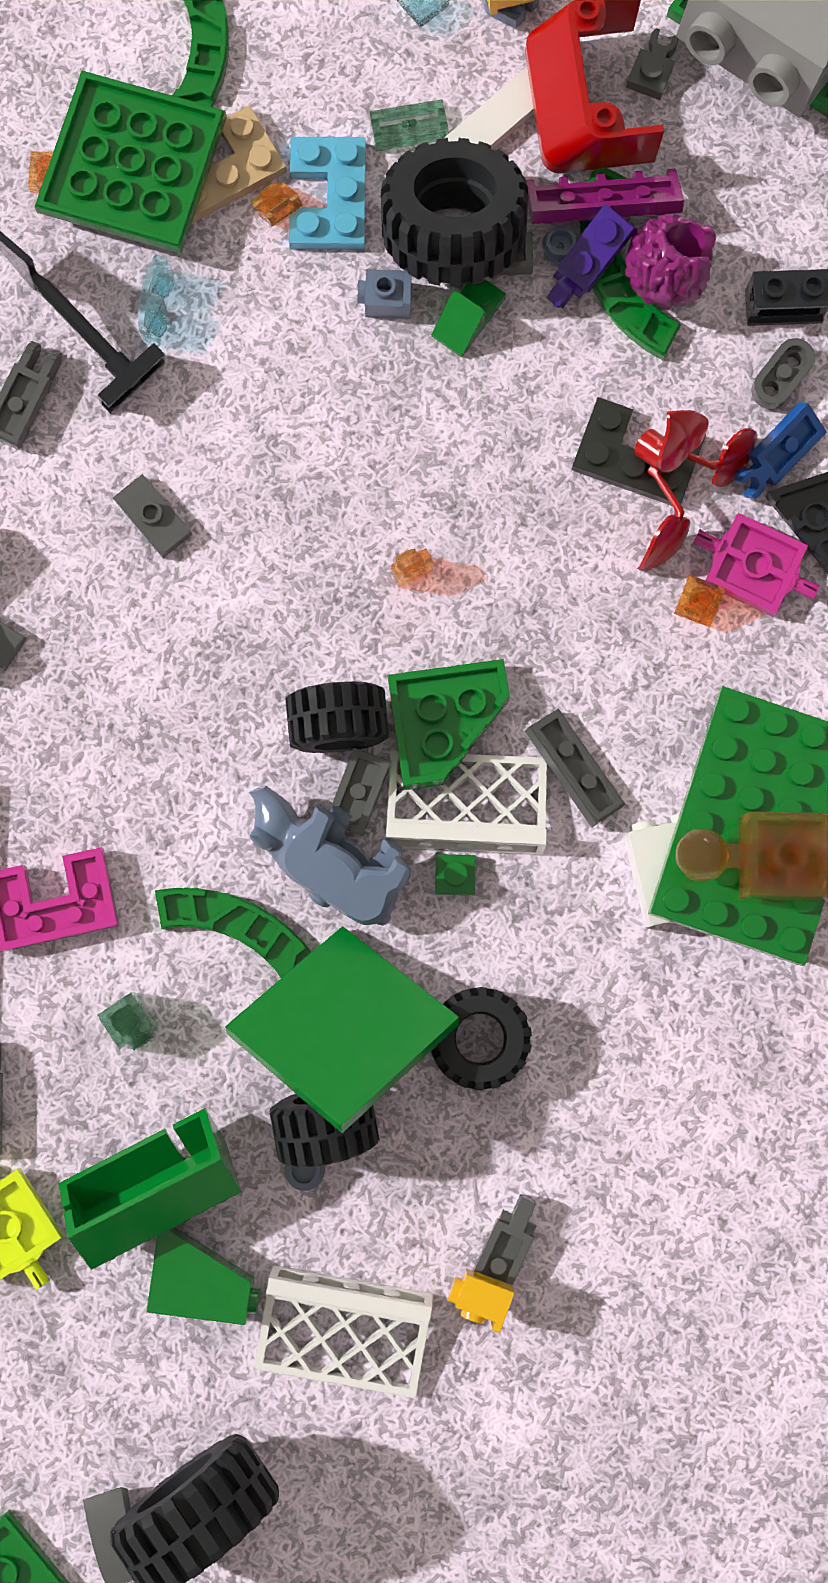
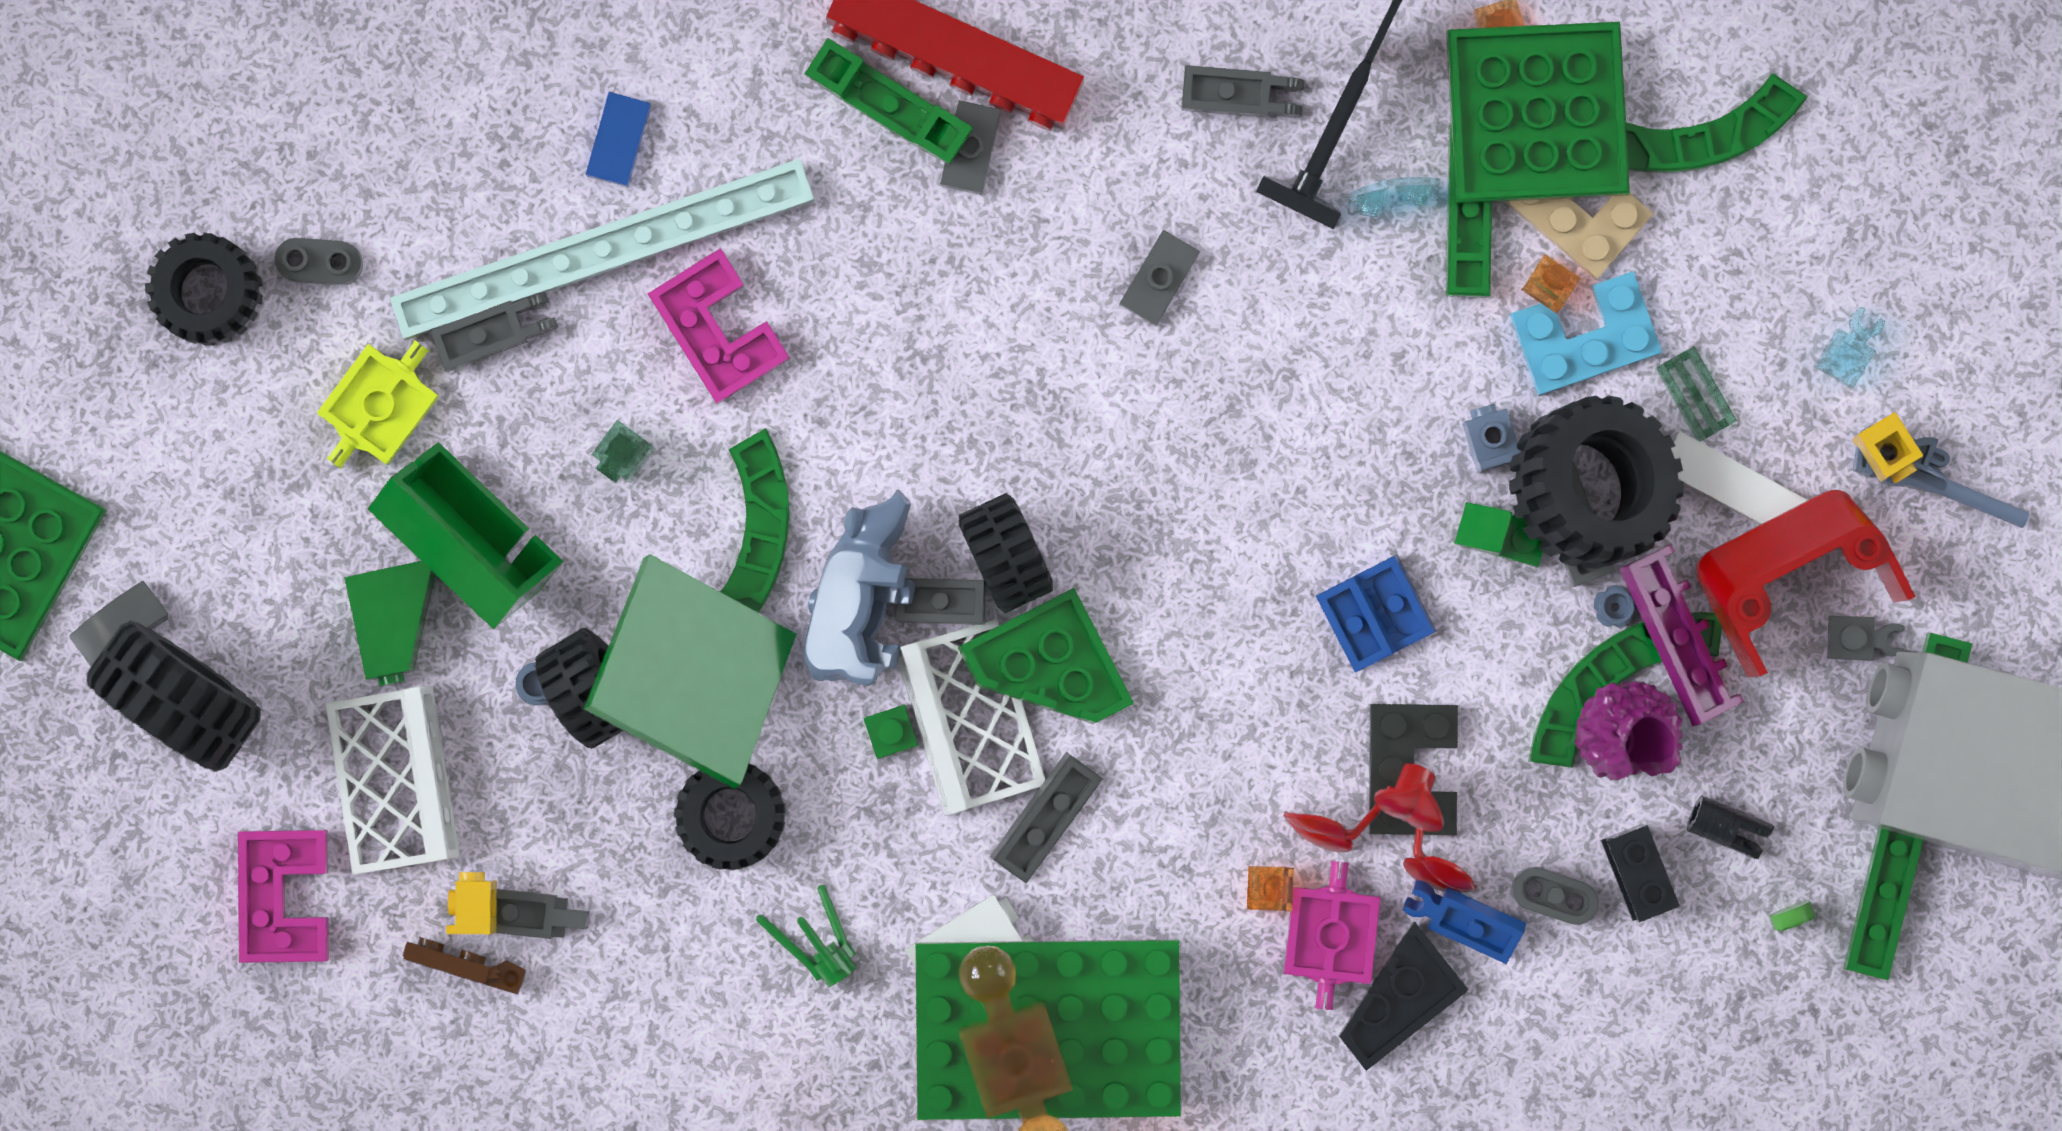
camera: 65 degrees right, 5 degrees up
(214, 257) = (1467, 243): none -> green plate
(411, 566) = (1199, 570): clear orange plate -> none
(431, 1498) = (262, 868): none -> dark pink plate
(497, 437) = (1376, 613): none -> blue slope
(533, 1321) = (468, 965): none -> reddish brown hinge
(590, 255) = (1606, 644): dark purple hinge -> none
(636, 995) = (832, 962): none -> green plant
(770, 220) = (1721, 824): none -> black hinge

